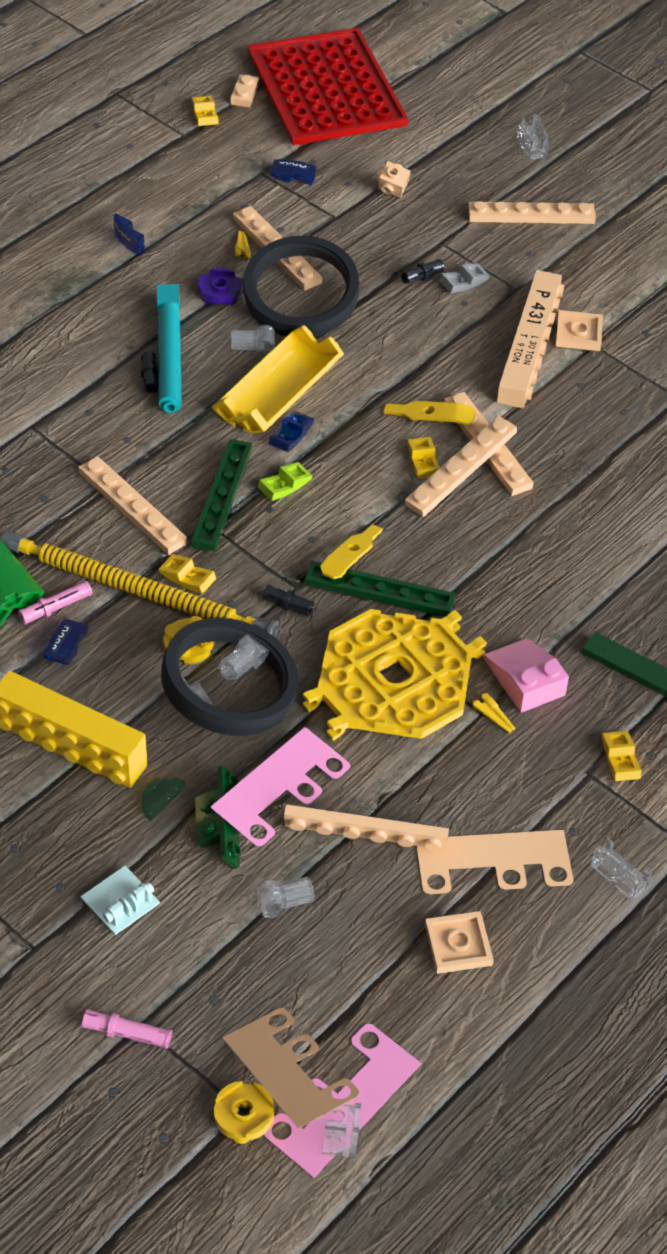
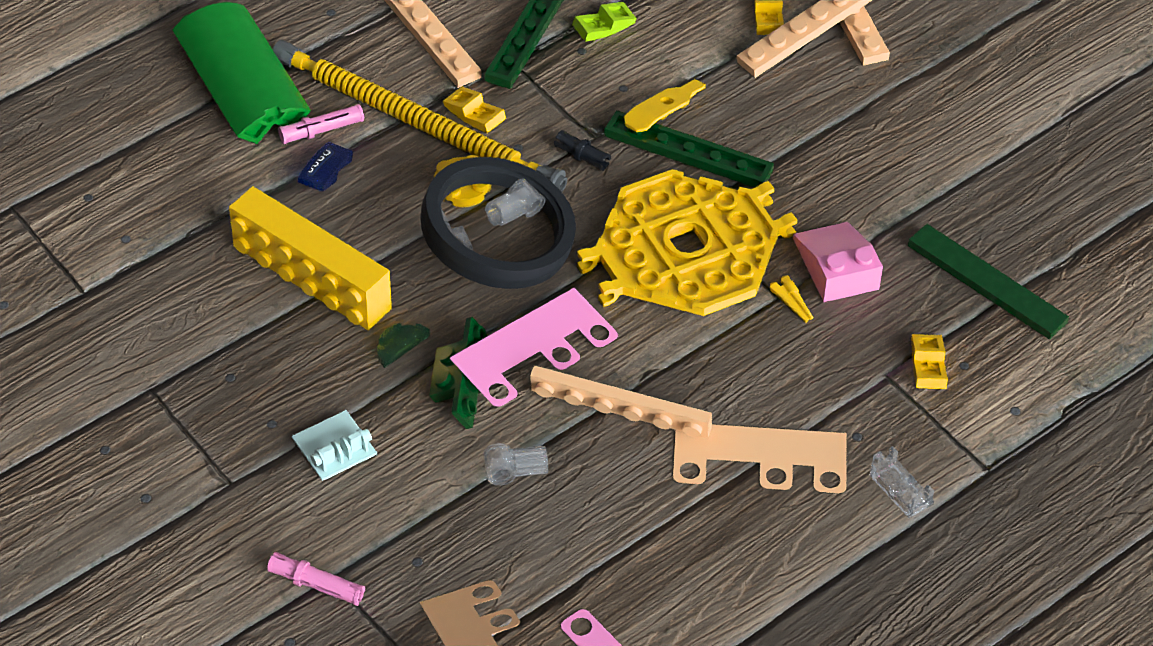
camera: 10 degrees right, 0 degrees up
(458, 942) = (700, 536): light nougat plate -> none

